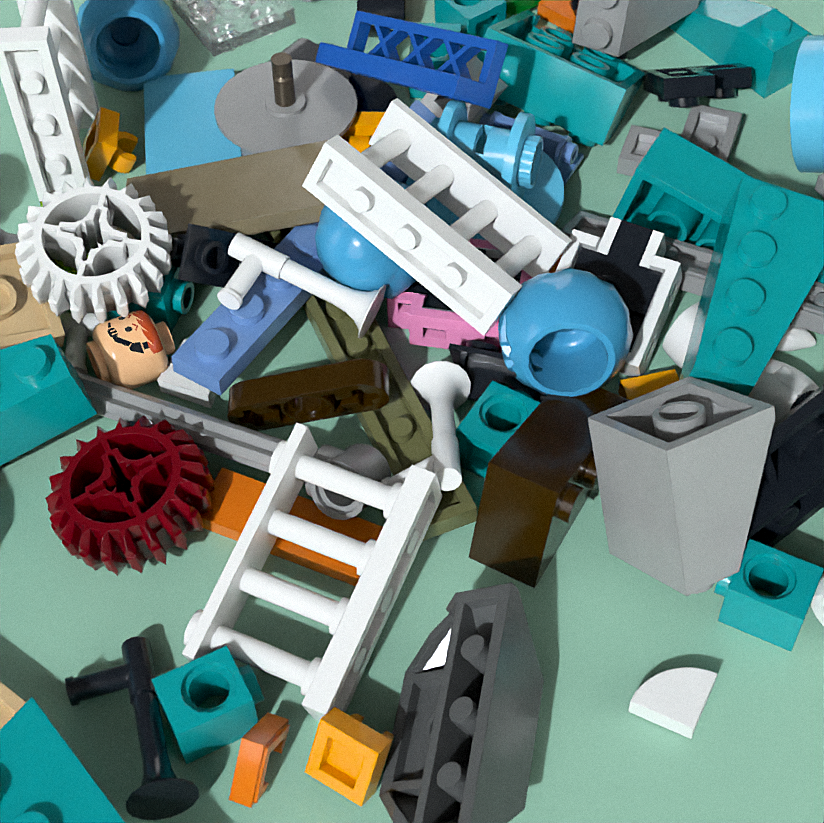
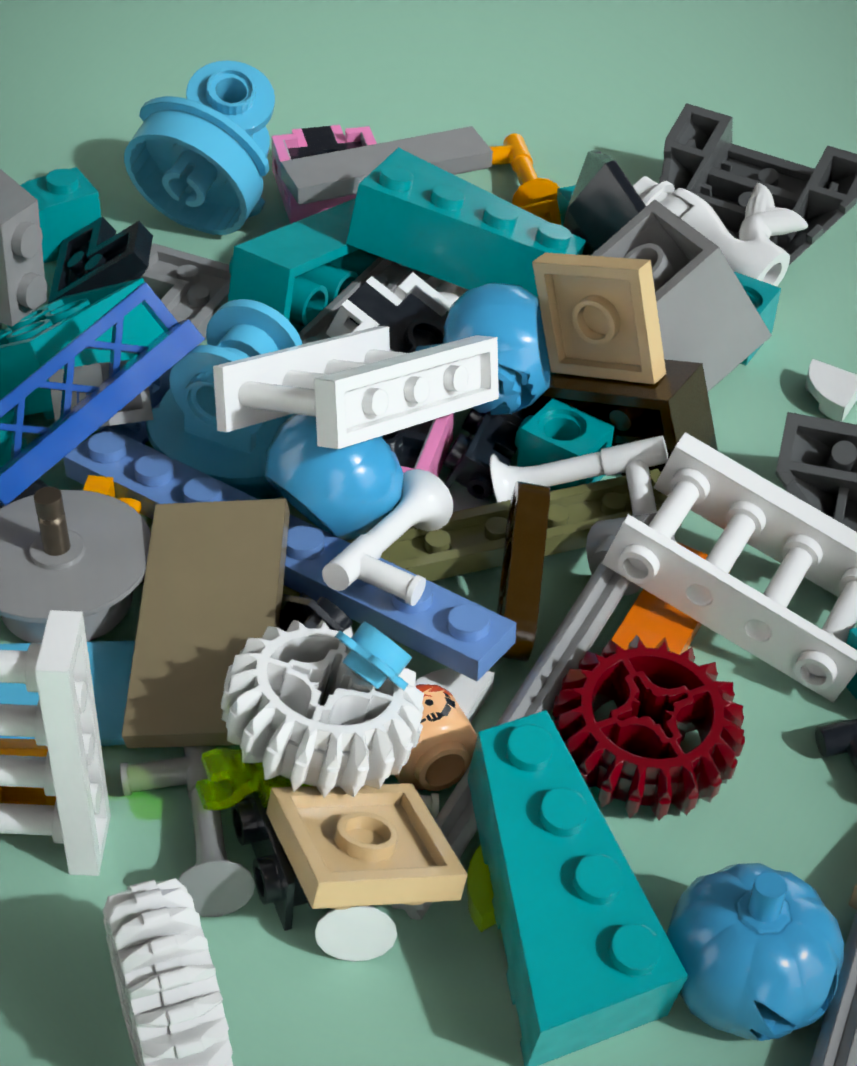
camera: 90 degrees left, 10 degrees down
(107, 249) = (374, 656): none -> medium azure plate
(577, 382) = (600, 317): none -> tan plate

